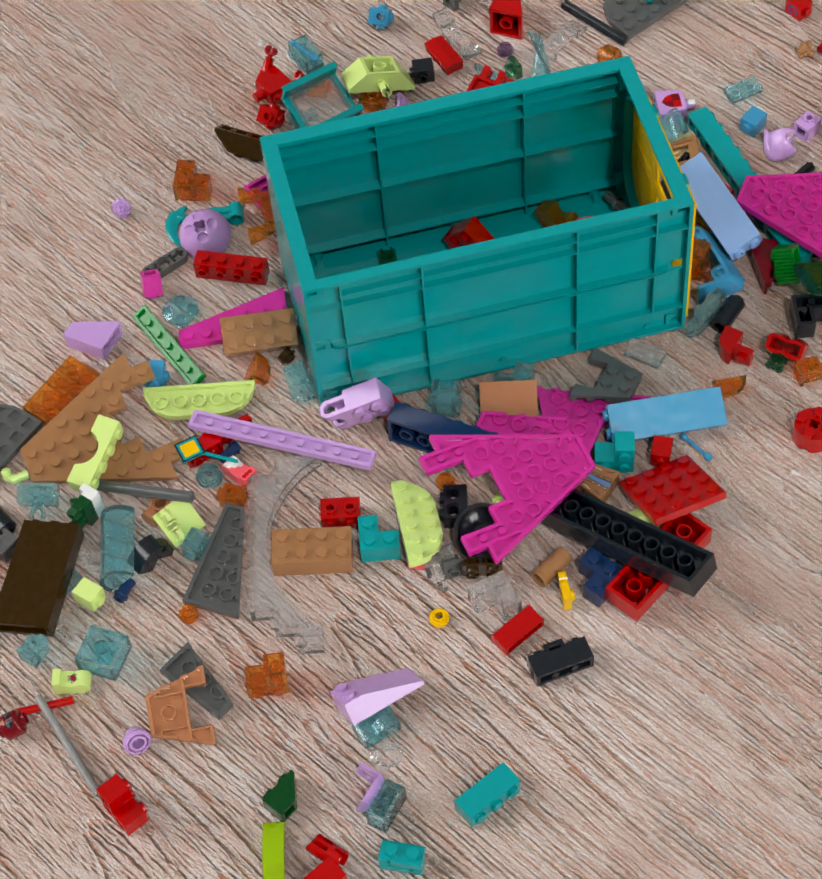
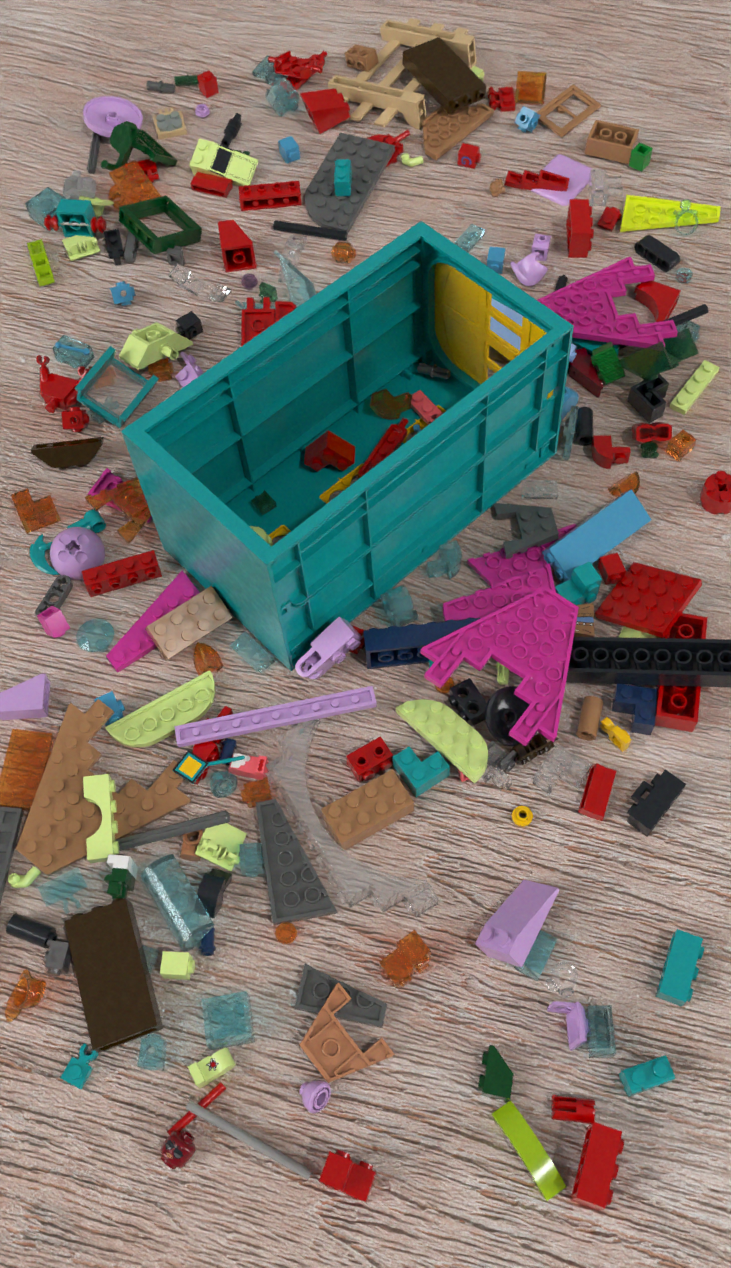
camera: 30 degrees left, 5 degrees up
(168, 346) = (105, 675): tile -> none
(287, 356) = (225, 633): dark brown plate -> none
(444, 55) = (200, 305): red piece -> none
(509, 397) = (453, 581): nougat tile -> none
(707, 456) = (648, 555): dark azure hinge -> none

